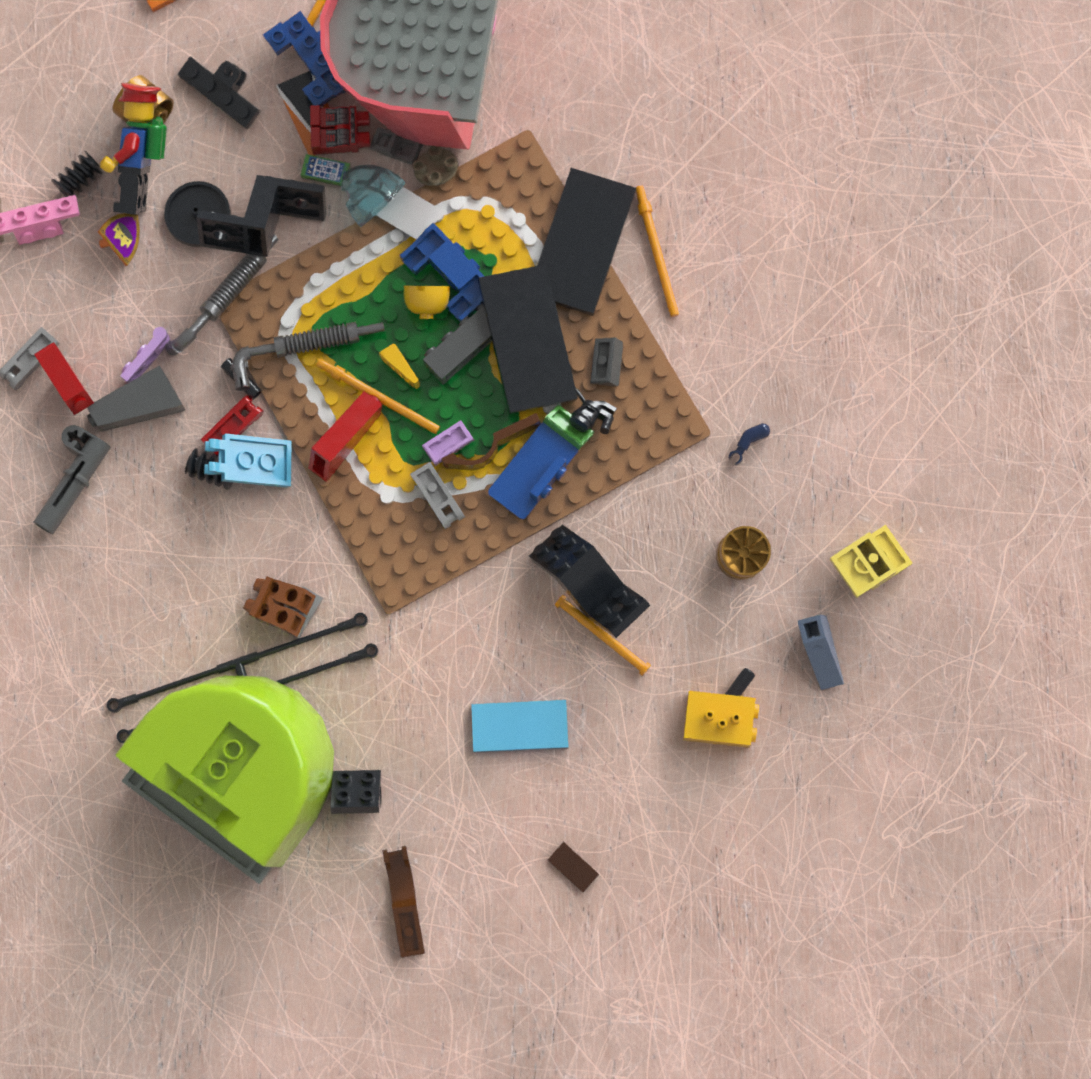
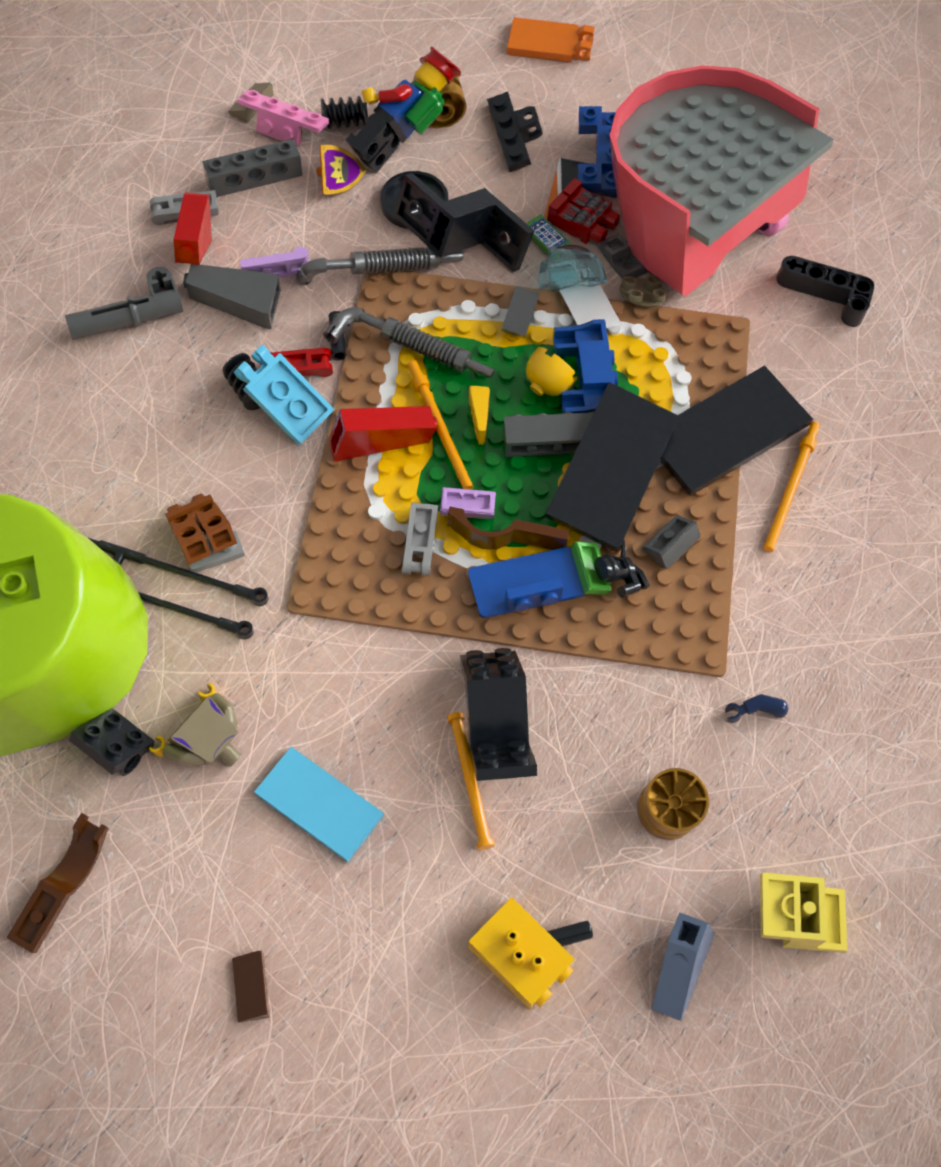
camera: 30 degrees right, 15 degrees down
(52, 284) = (253, 168): none -> dark grey brick
(362, 257) = (520, 312): none -> dark grey slope
(410, 740) = (203, 734): none -> dark tan torso
(566, 59) = (830, 284): none -> black beam

